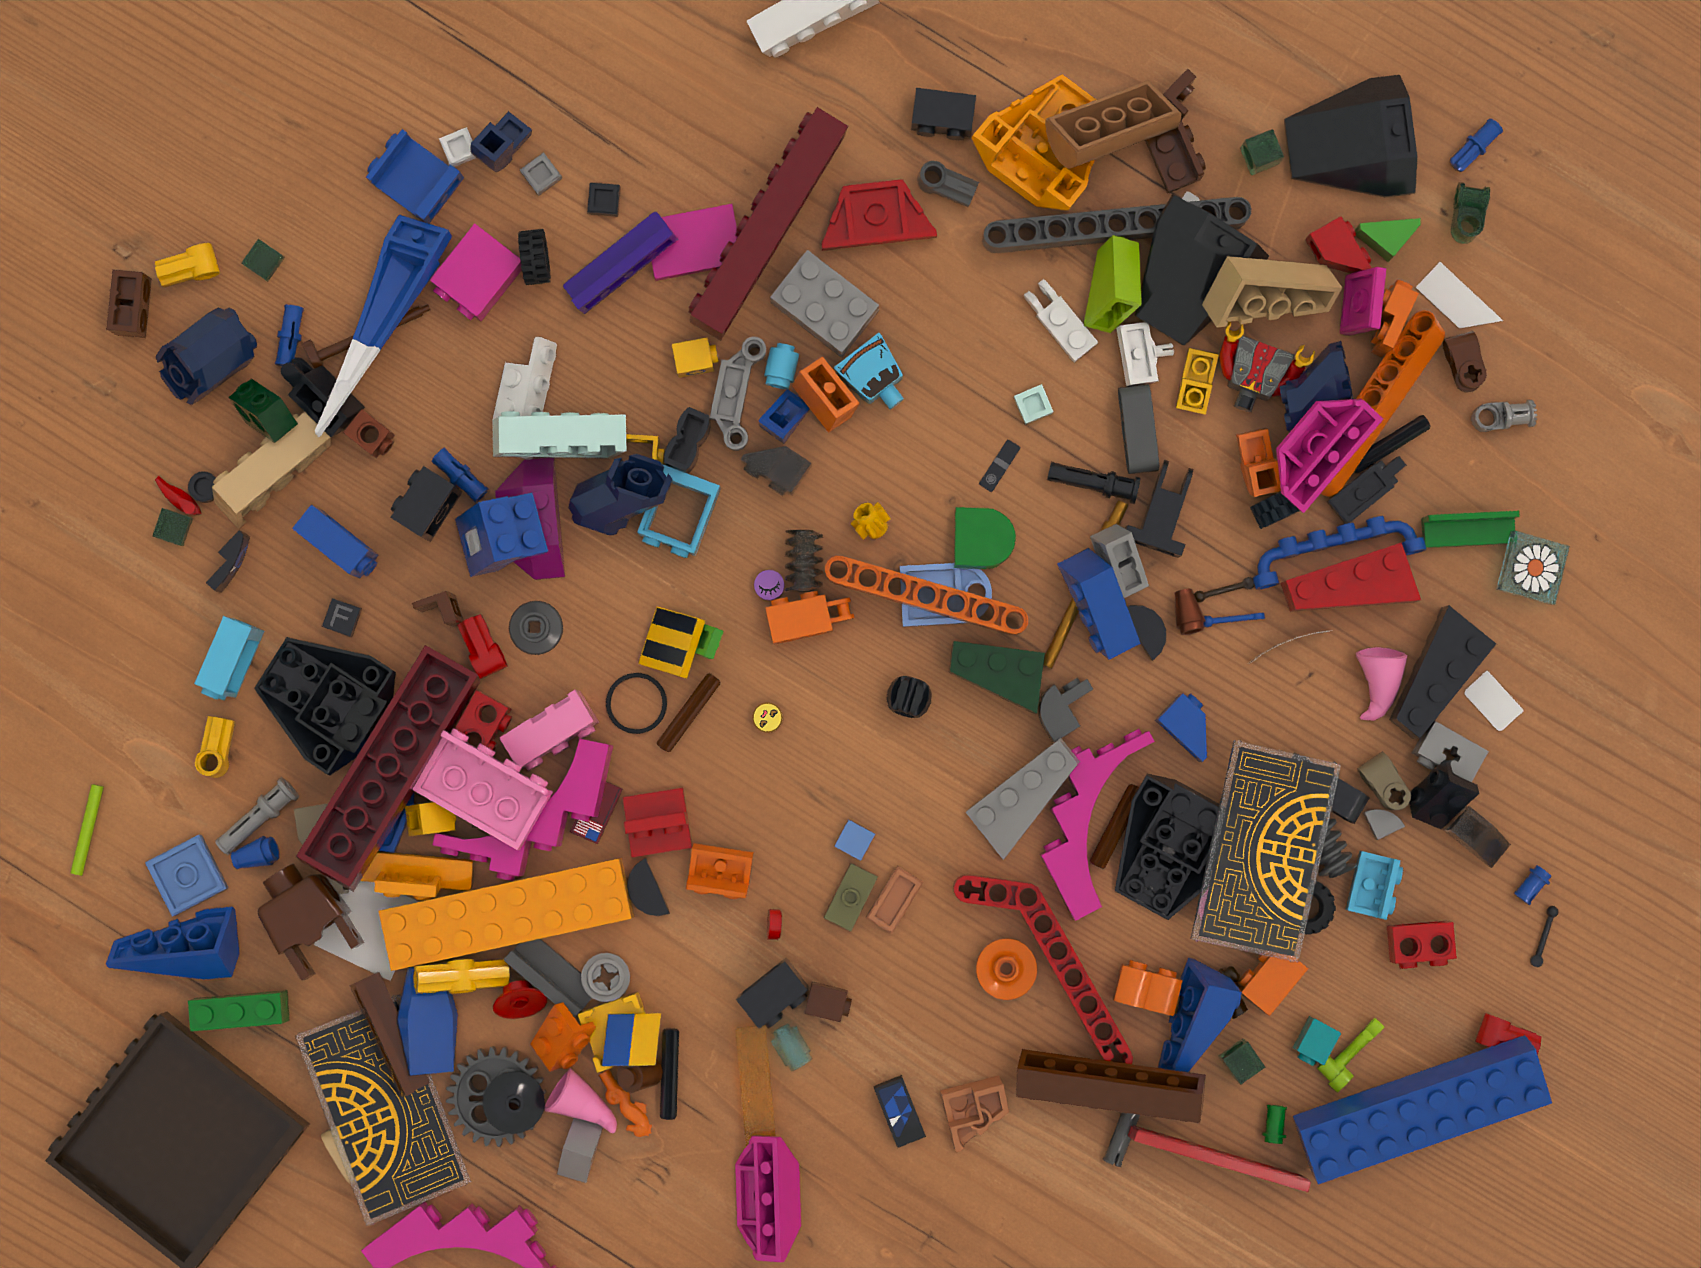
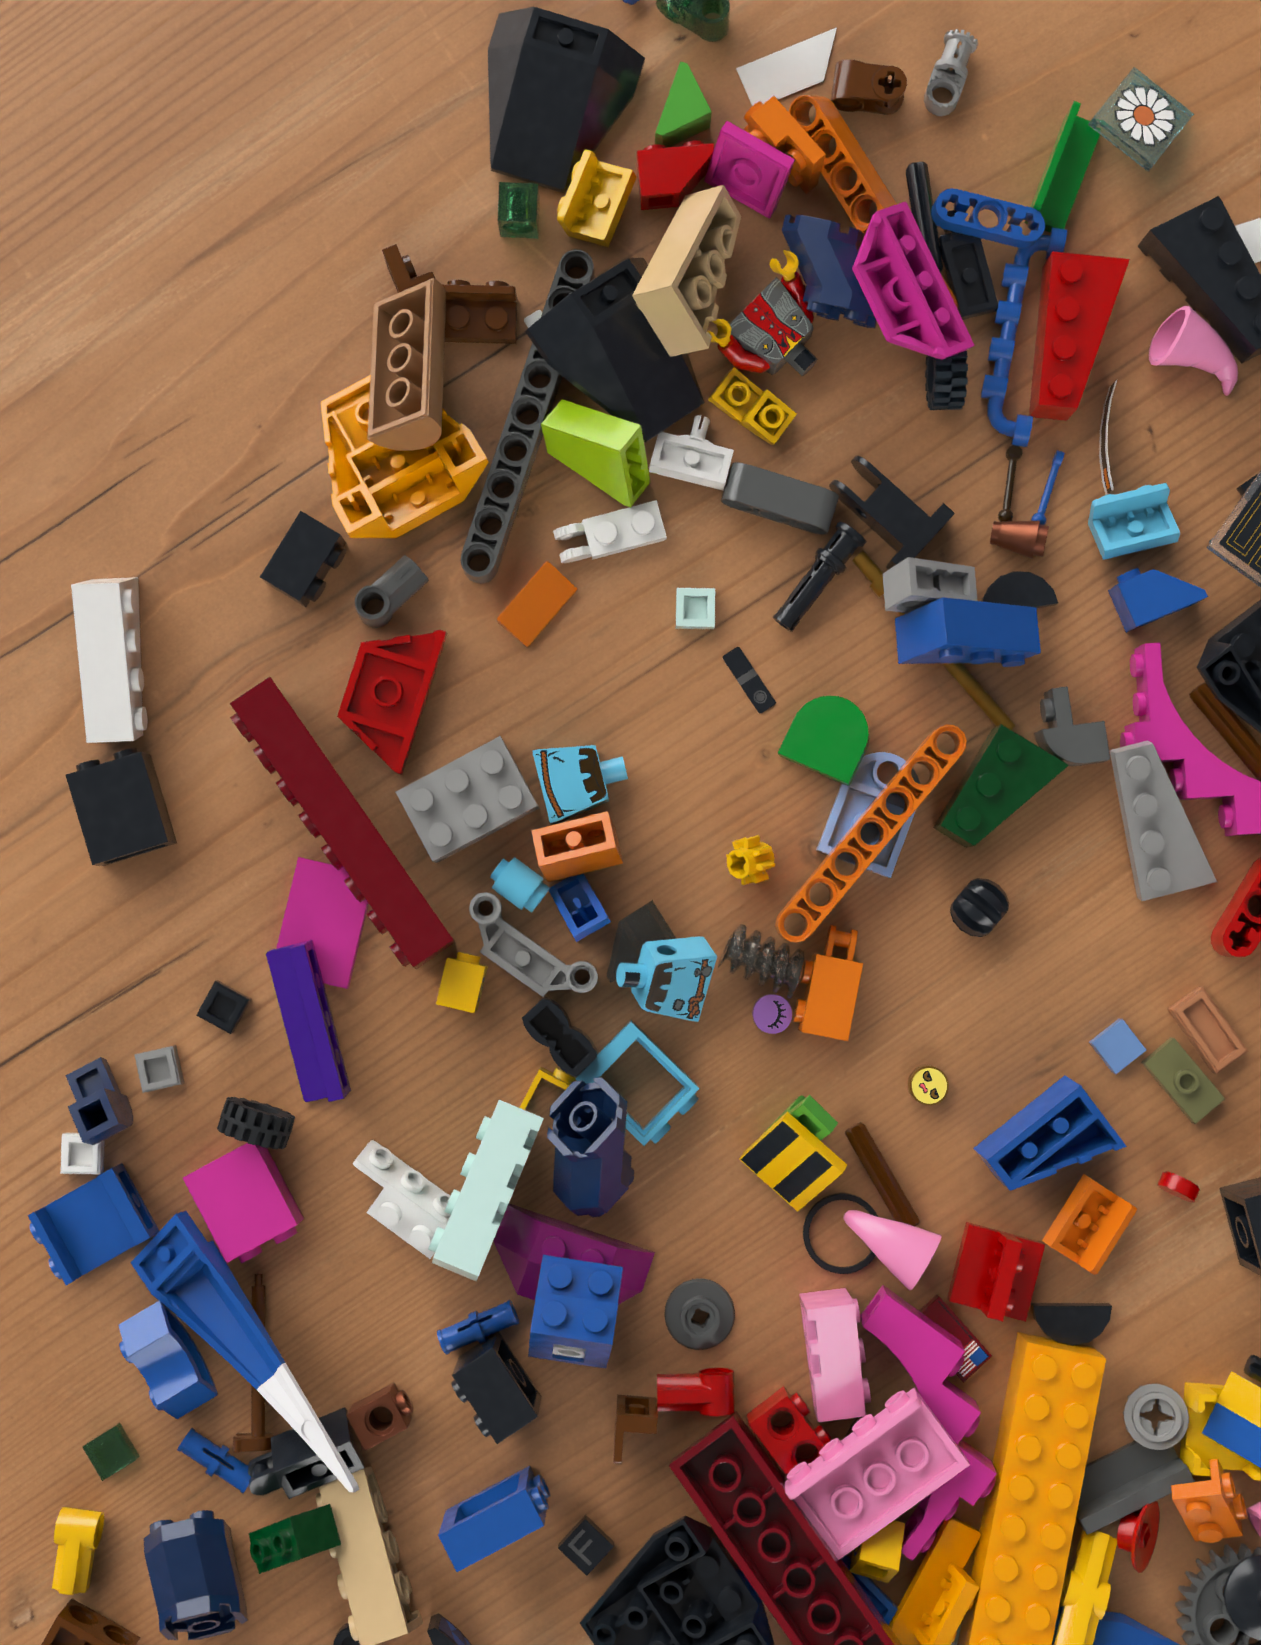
camera: 70 degrees left, 0 degrees up
(343, 270) = (167, 1360): none -> blue brick
(645, 739) = (897, 1245): none -> bright pink hat
(711, 64) = (120, 807): none -> black brick
(763, 498) = (671, 976): none -> medium azure torso
(768, 813) = (1047, 1136): none -> blue wedge
(985, 290) = (536, 604): none -> orange slope
(1235, 687) = (1133, 521): none -> medium azure bracket
(1258, 464) = (888, 379): orange brick -> none
(1294, 202) = (595, 199): none -> yellow bracket
(1392, 467) = (1012, 236): none -> blue beam

